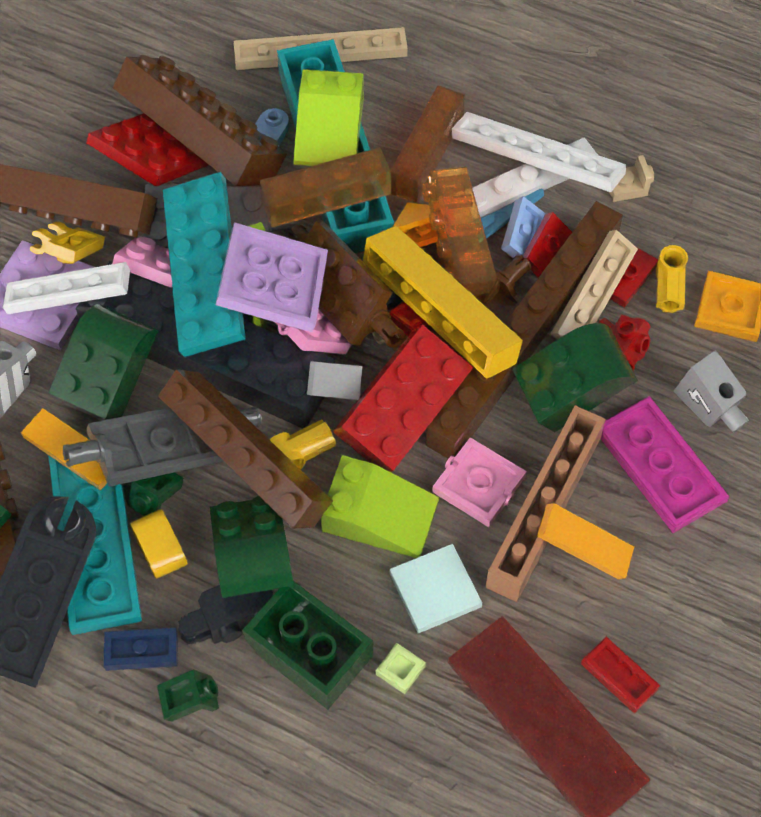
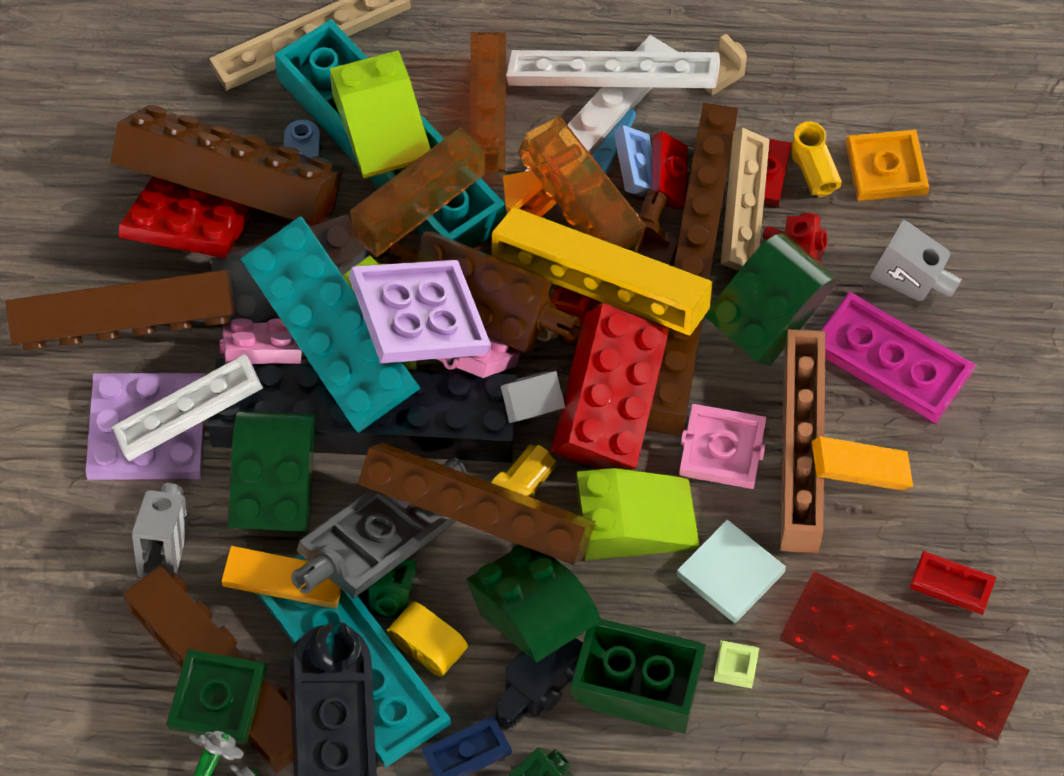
camera: 25 degrees left, 0 degrees up
(70, 243) = (154, 358): yellow plate -> none

